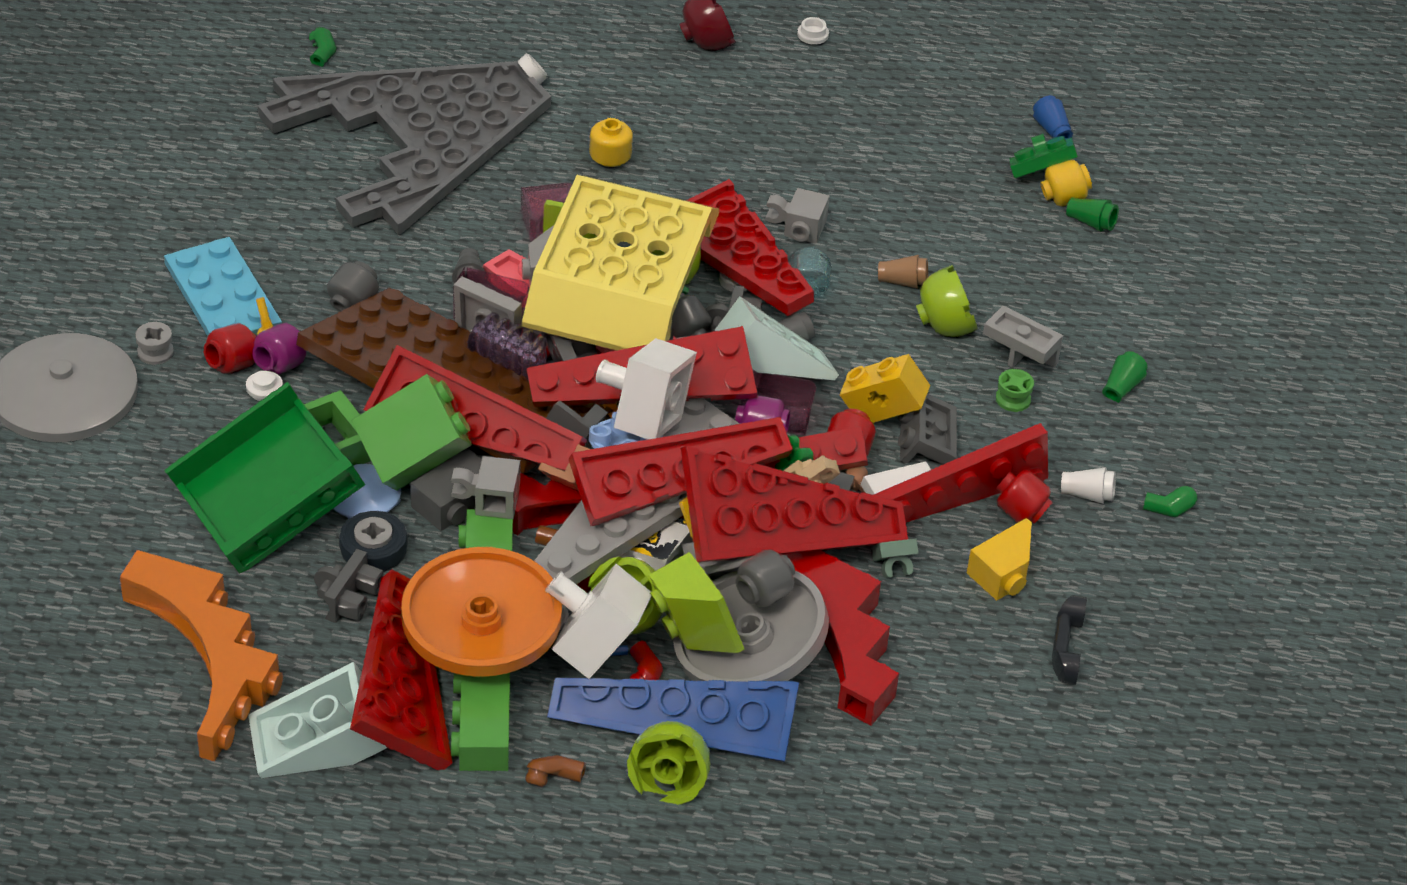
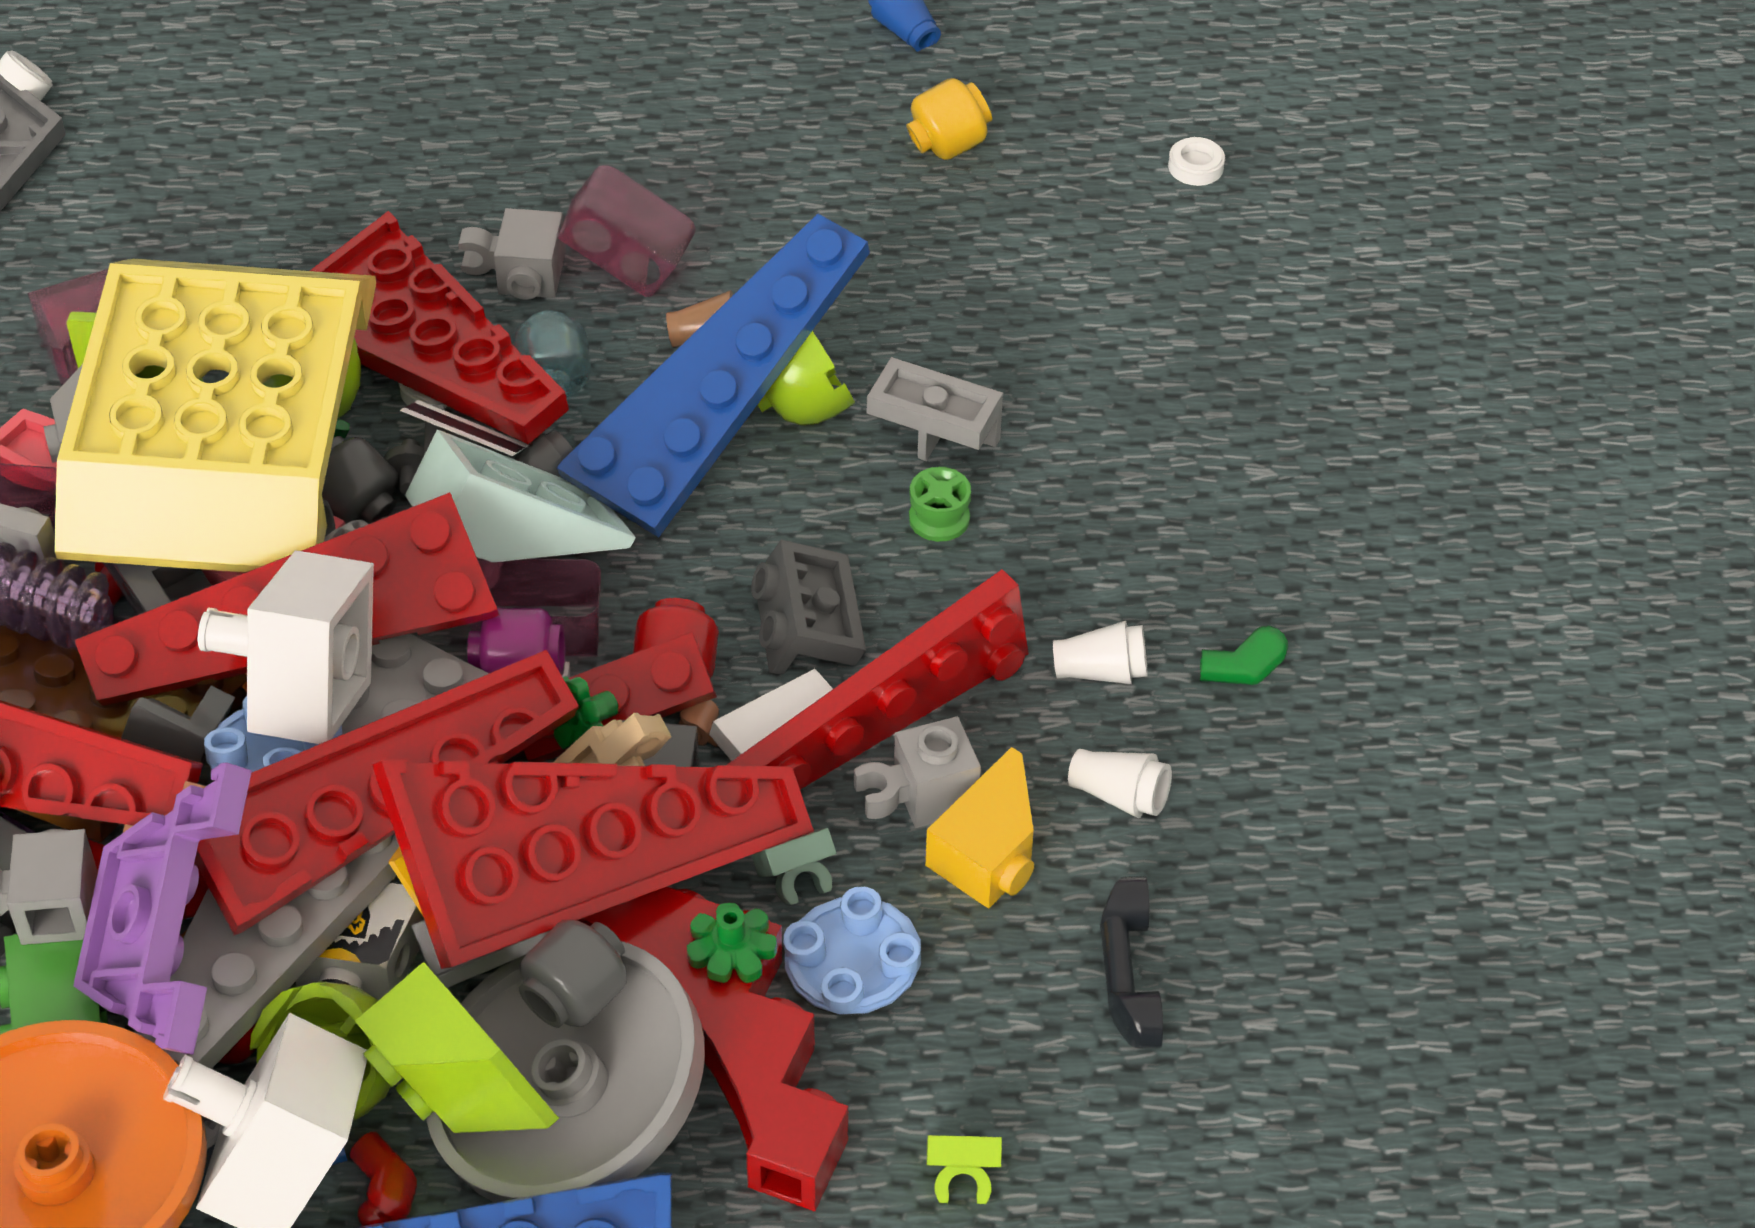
camera: 10 degrees left, 5 degrees up
(545, 498) = (140, 906): none -> medium lavender wing
(611, 142) = (175, 183): yellow head -> none
(755, 301) = (464, 427): none -> sticker
(852, 582) = (731, 943): none -> green plant
(860, 196) = (614, 205): none -> clear pink piece
(883, 311) = (694, 403): none -> blue wing
(886, 388) = (721, 549): yellow brick -> none
(916, 606) = (852, 953): none -> light blue dish
(956, 711) = (963, 1156): none -> lime tile
(978, 521) = (928, 774): none -> light grey brick
(1023, 496) = (998, 704): red head -> none
(1043, 155) = (903, 80): green plate -> none
(1086, 549) = (1125, 780): none -> white cone
(1094, 212) = (1005, 162): green cone -> none
(1125, 375) = (1118, 440): green cone -> none
(1209, 232) = (1196, 161): none -> white tile

